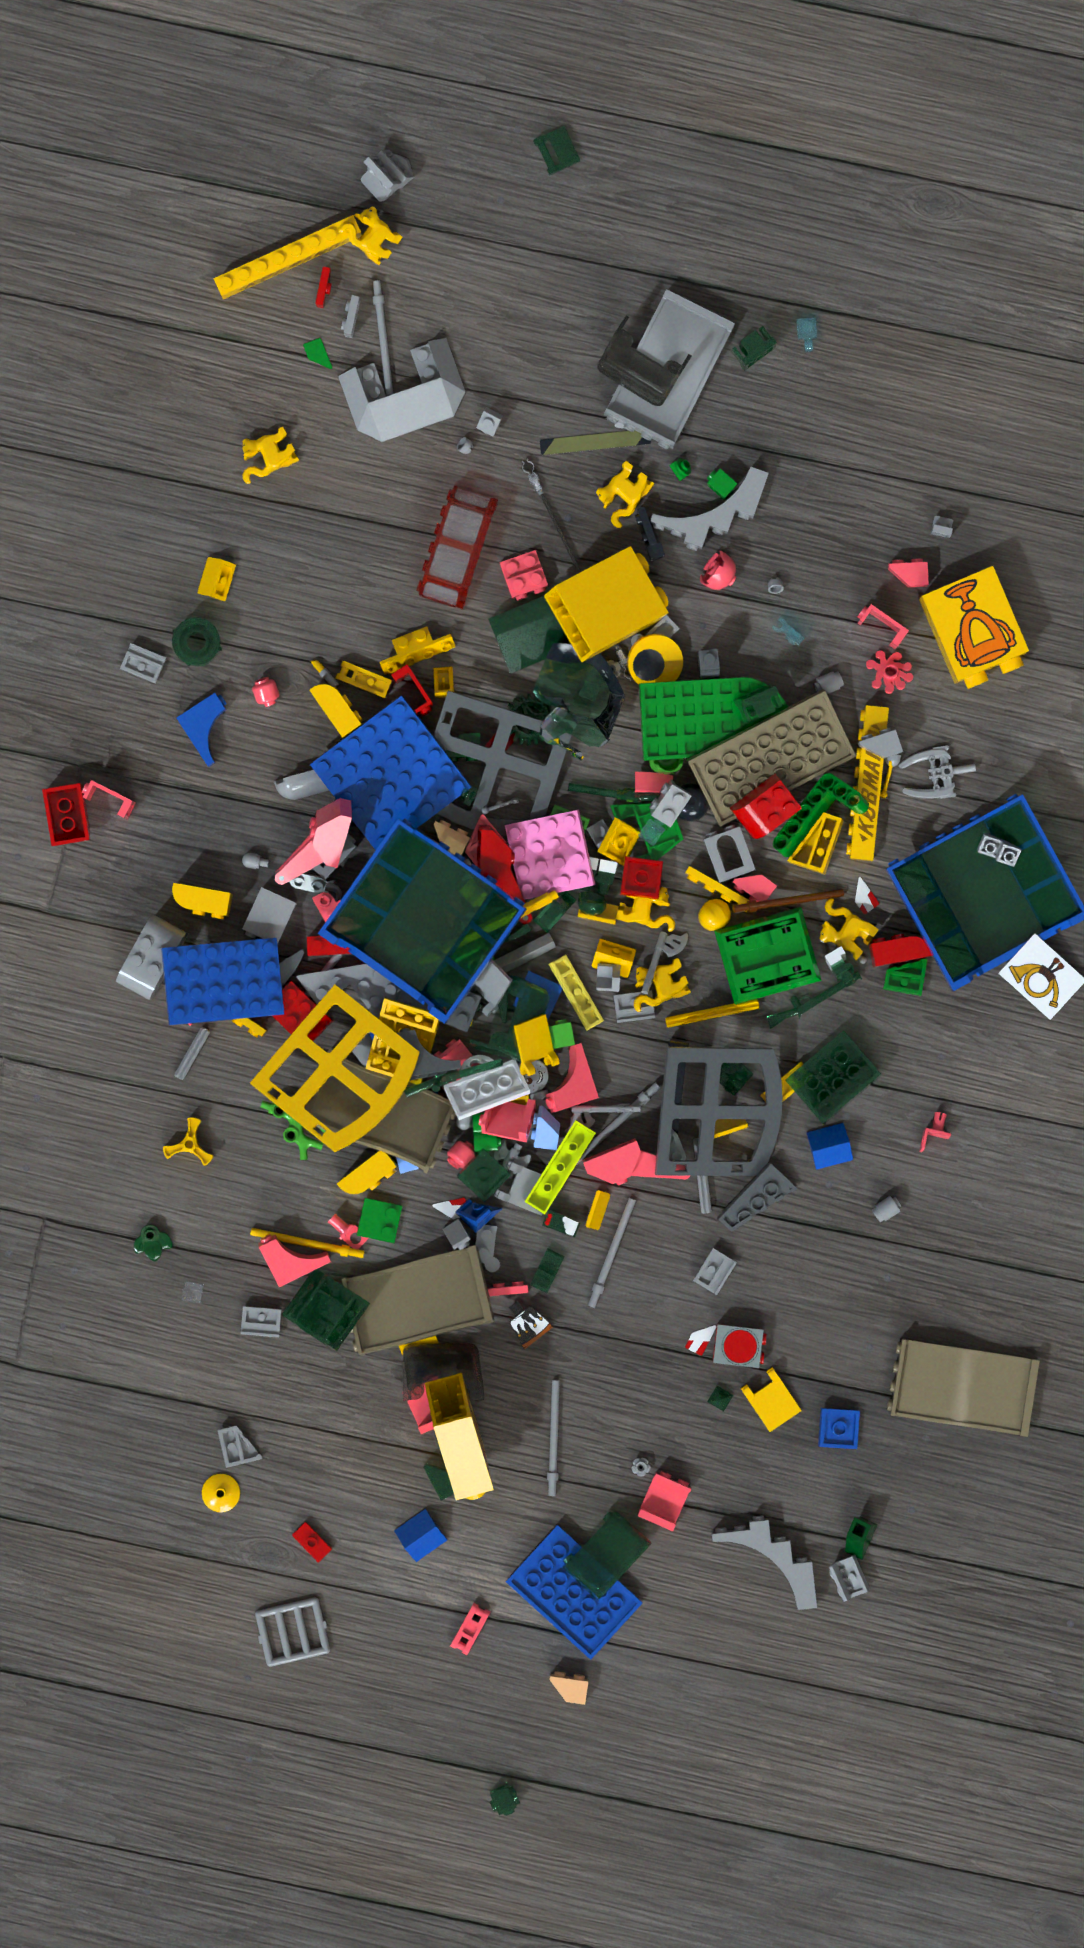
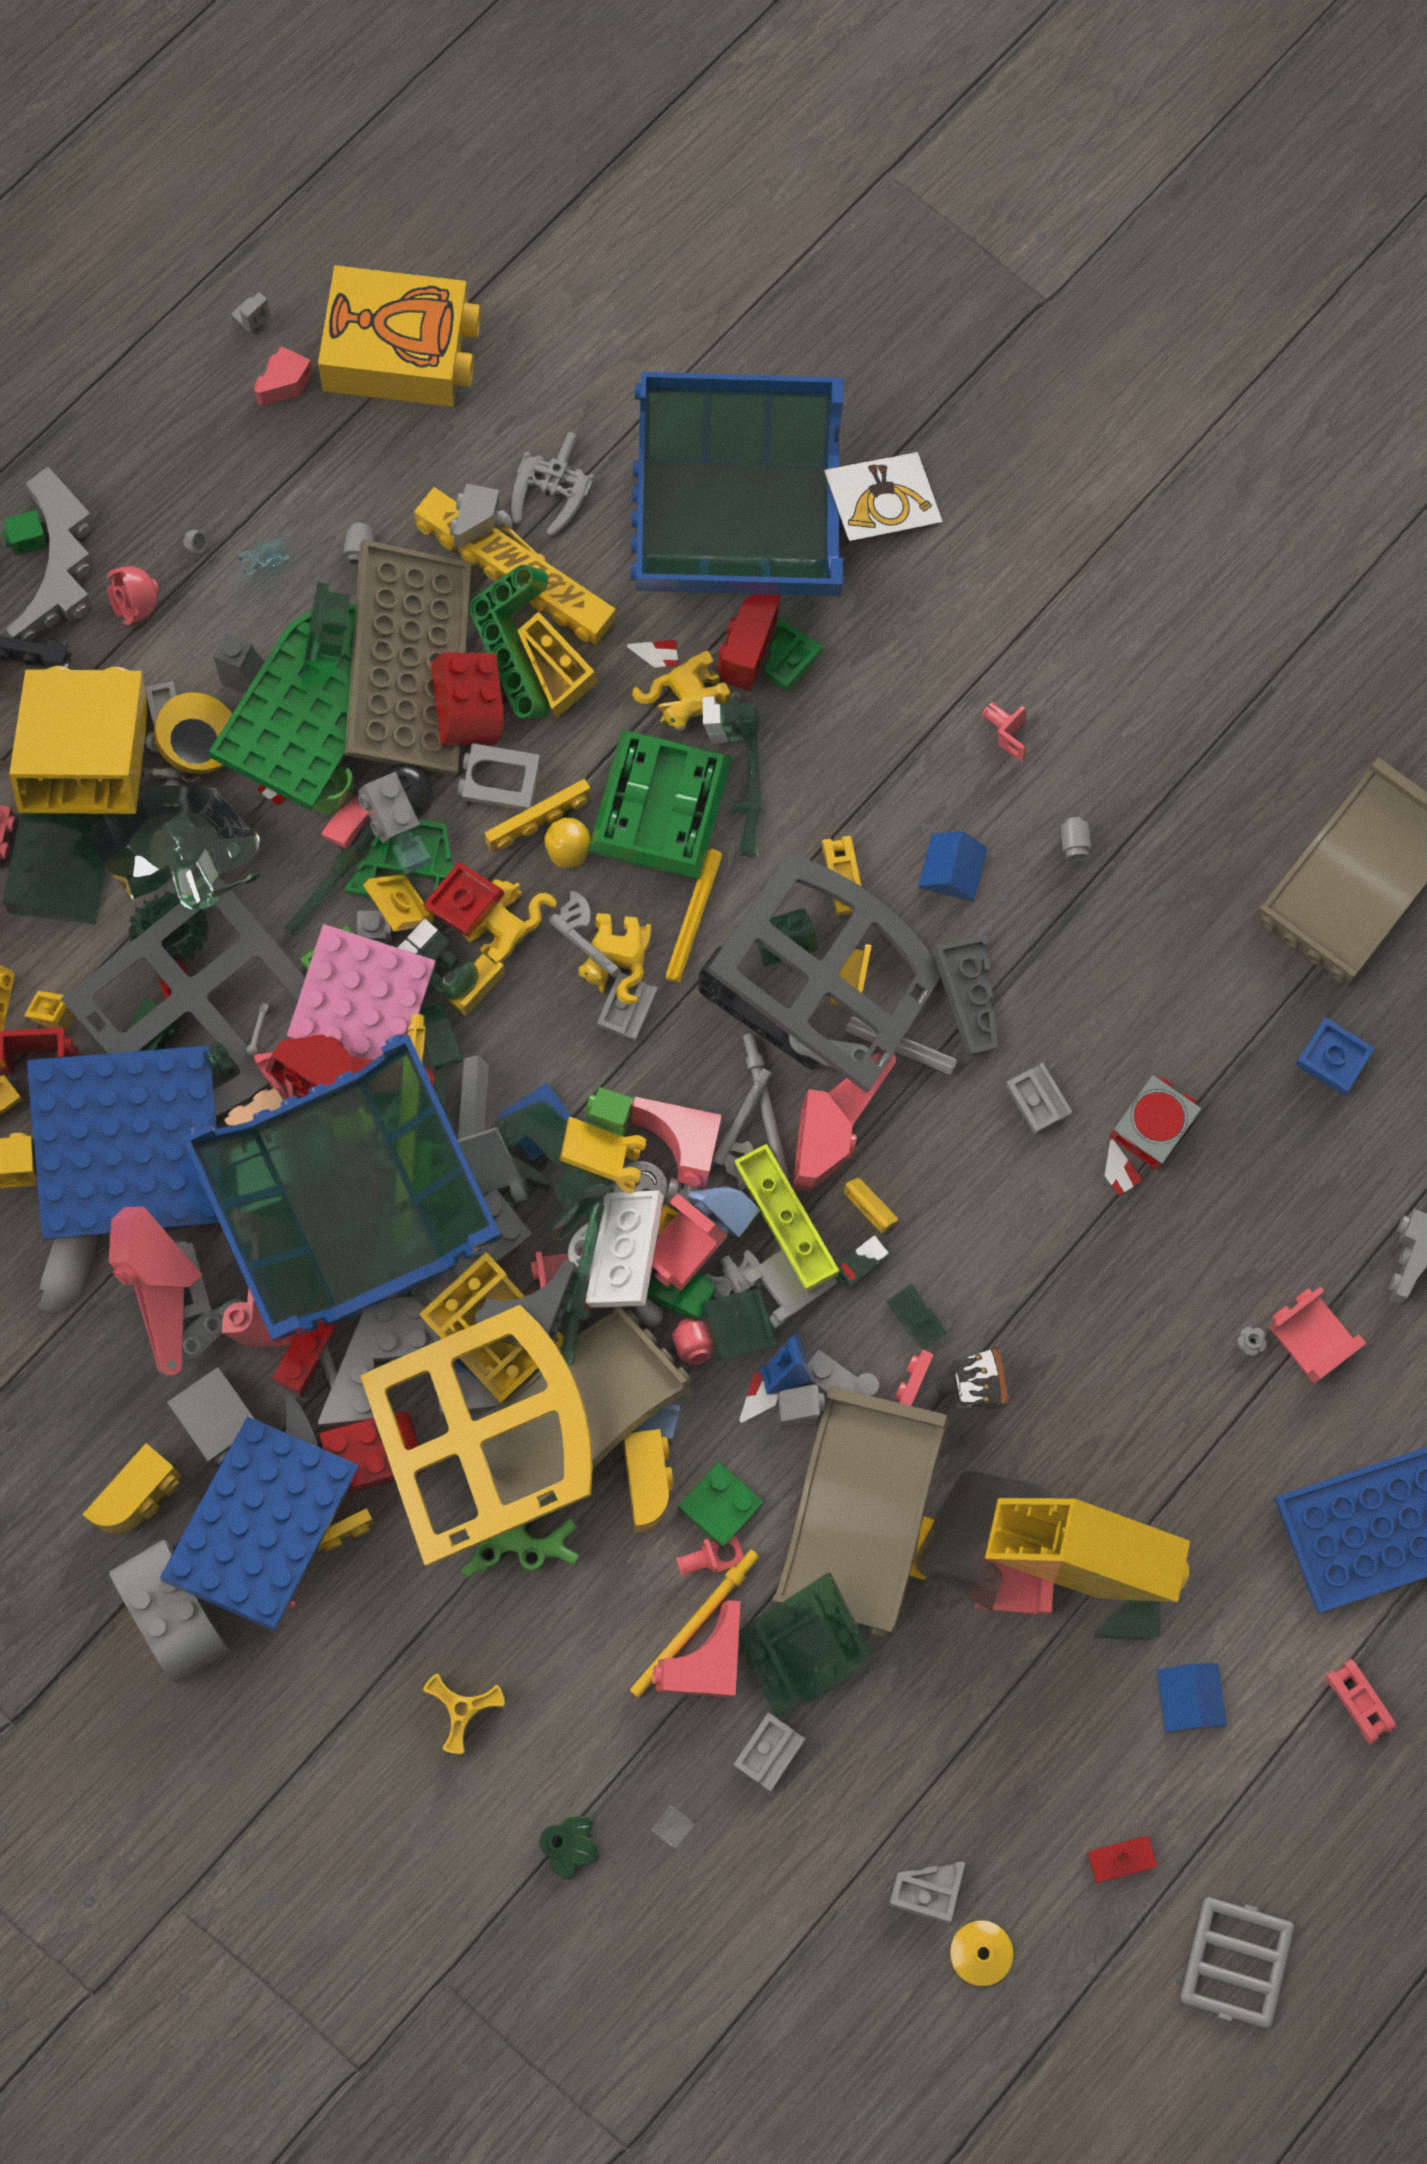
camera: 70 degrees left, 15 degrees down
(192, 1053) = (337, 1634): light grey axle -> none
(254, 861) = (127, 1395): light grey cylinder -> none
(552, 1475) = (1202, 1467): light grey bar -> none
(576, 992) = (563, 1069): light yellow plate -> none
(598, 1287) = (977, 1262): light grey bar -> none
(606, 1555) = (1357, 1449): clear green windscreen -> none
(608, 977) = (568, 1016): light grey panel -> none
(613, 953) = (548, 998): yellow panel -> none
(720, 1398) = (1213, 1187): clear green slope -> none
(752, 906) = (585, 778): reddish brown bar -> none
(756, 886) = (562, 769): coral slope -> none
(772, 1402) = (1254, 1122): yellow flag -> none
(833, 1077) = (867, 808): clear green slope -> none
(890, 671) = (392, 466): coral animal -> none
(901, 631) = (326, 430): coral panel -> none
(999, 849) = (693, 453): light grey slope -> none

